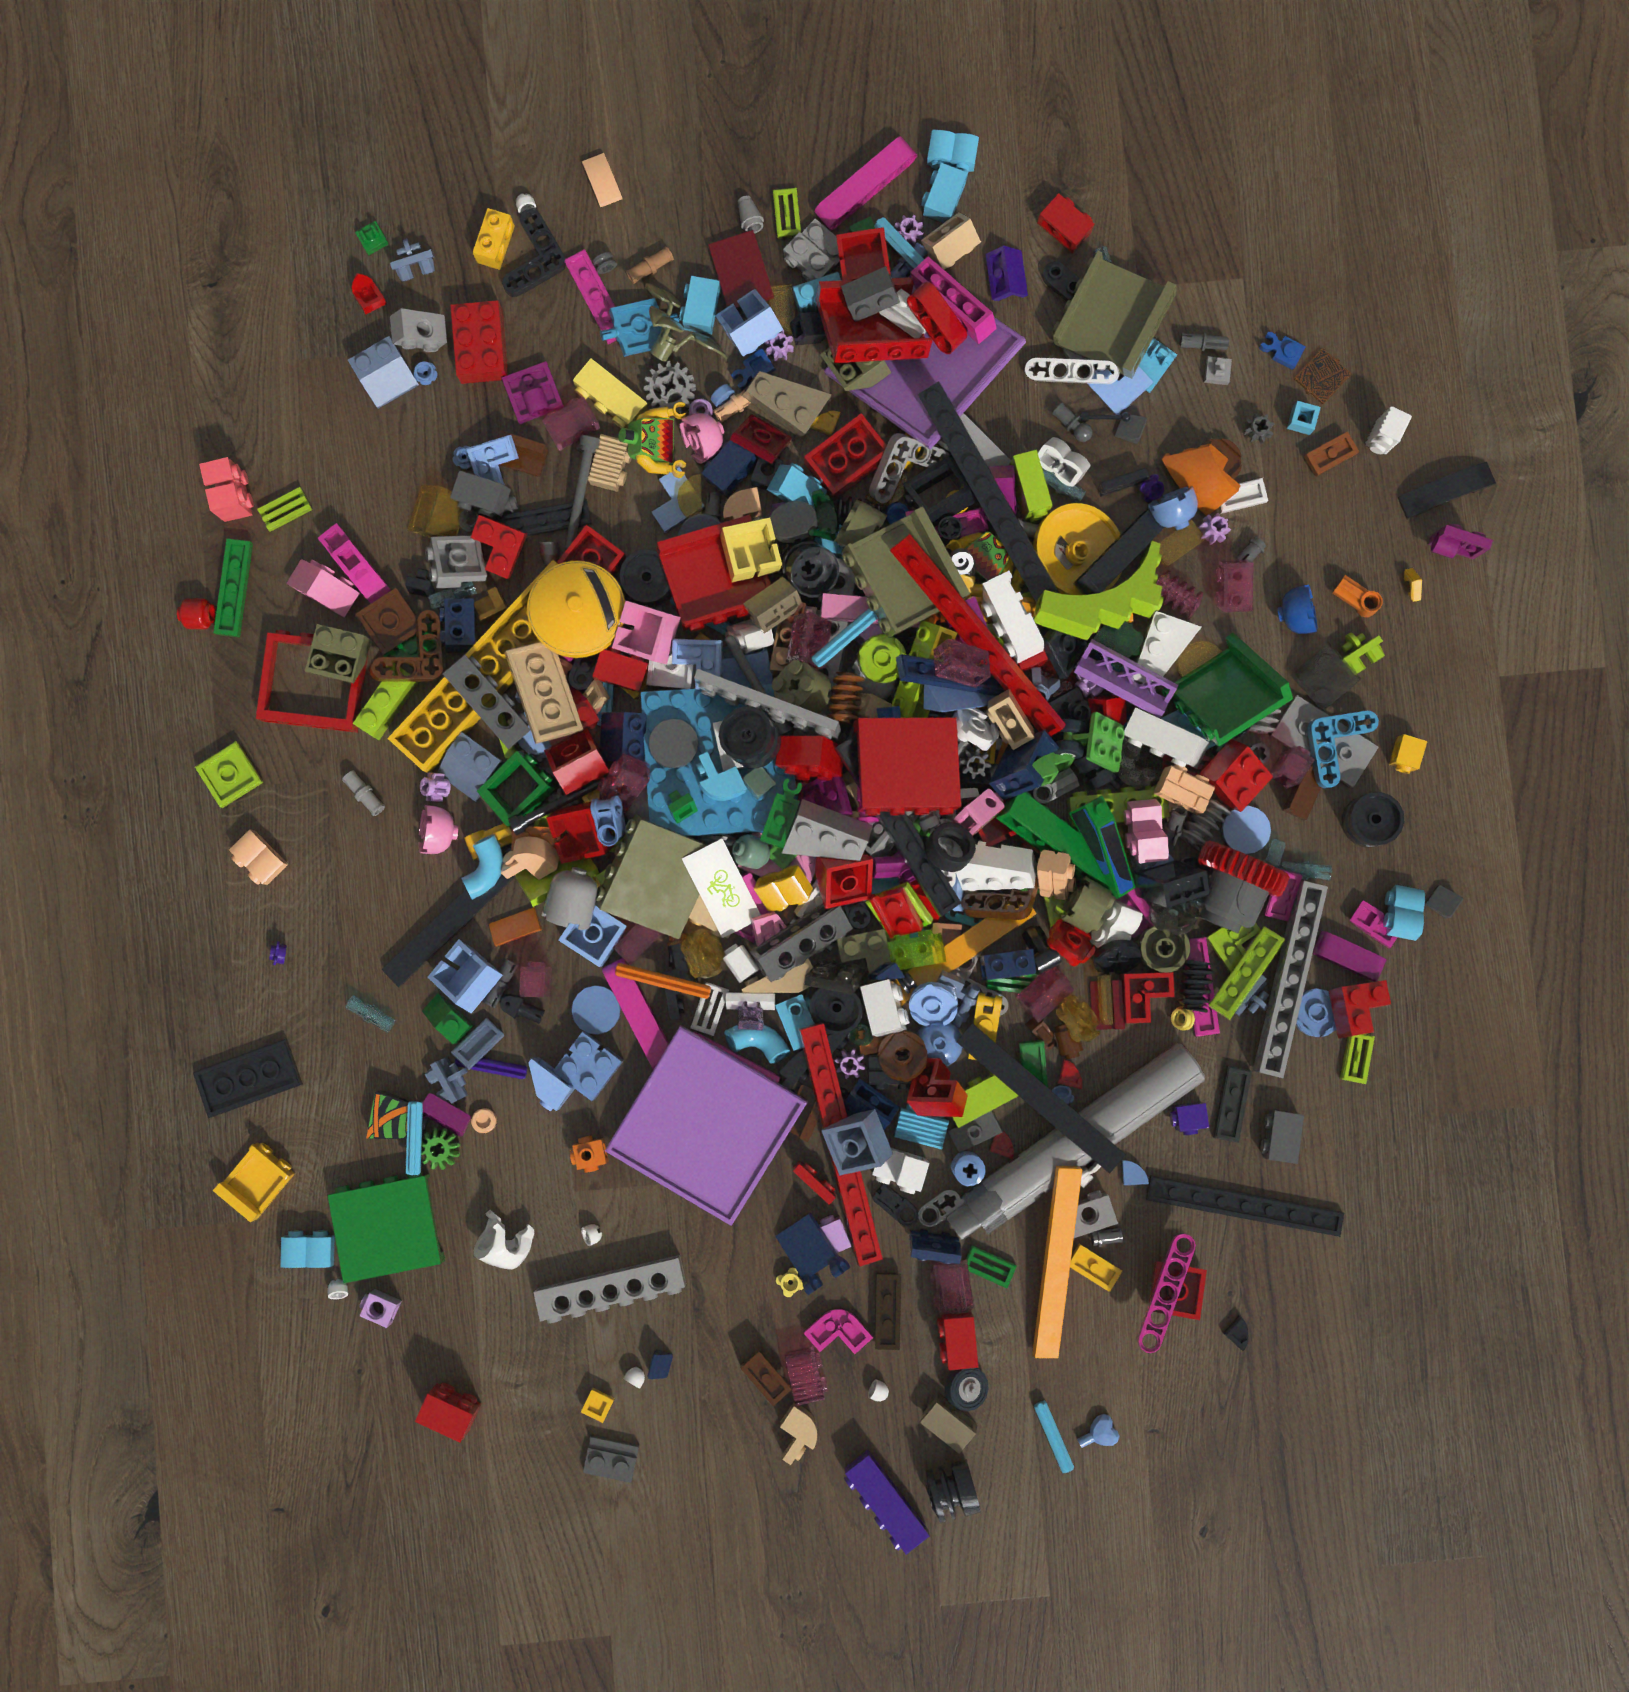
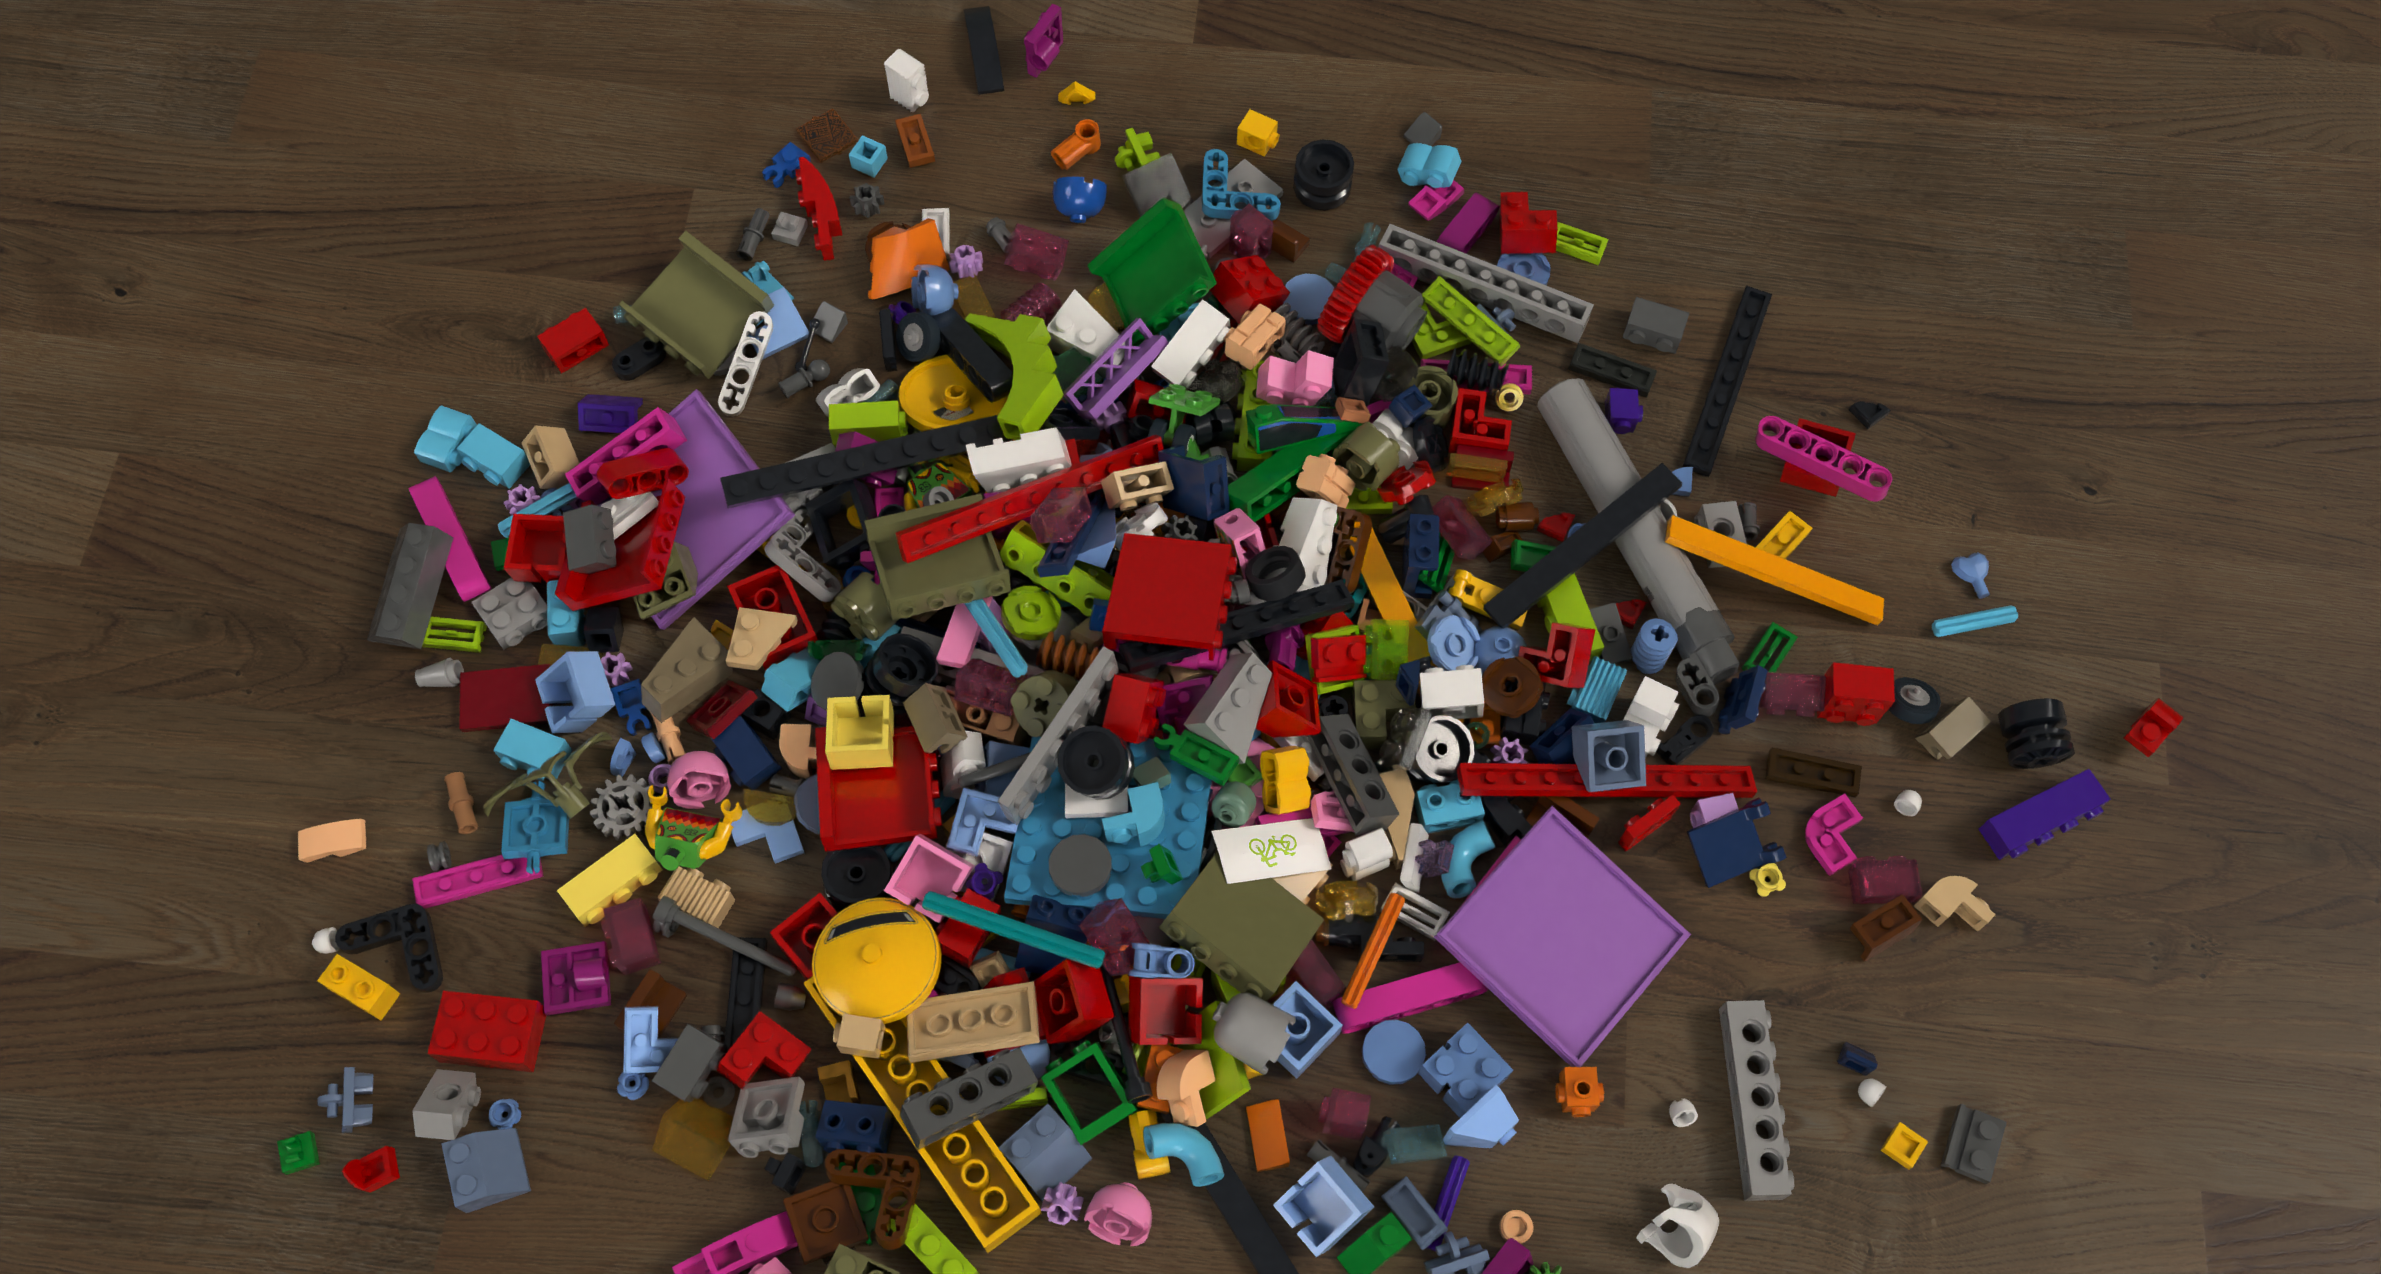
camera: 80 degrees left, 20 degrees down
(516, 611) = (859, 1035): none -> tan brick
(526, 1036) = (1415, 1144): none -> clear light blue plate
(611, 704) = (1013, 929): none -> teal axle
(652, 669) = (976, 884): none -> dark purple plate
(710, 374) = (622, 757): none -> medium blue tile
(813, 167) = (410, 586): none -> dark grey slope
(820, 448) = (756, 636): none -> tan wing
(981, 1589) = (2153, 727): none -> red brick
(1127, 885) = (1352, 410): none -> nougat tile
(1128, 506) = (918, 337): none -> black wheel
(1144, 933) = (1409, 406): none -> dark blue slope
(1249, 387) = (819, 205): none -> red slope

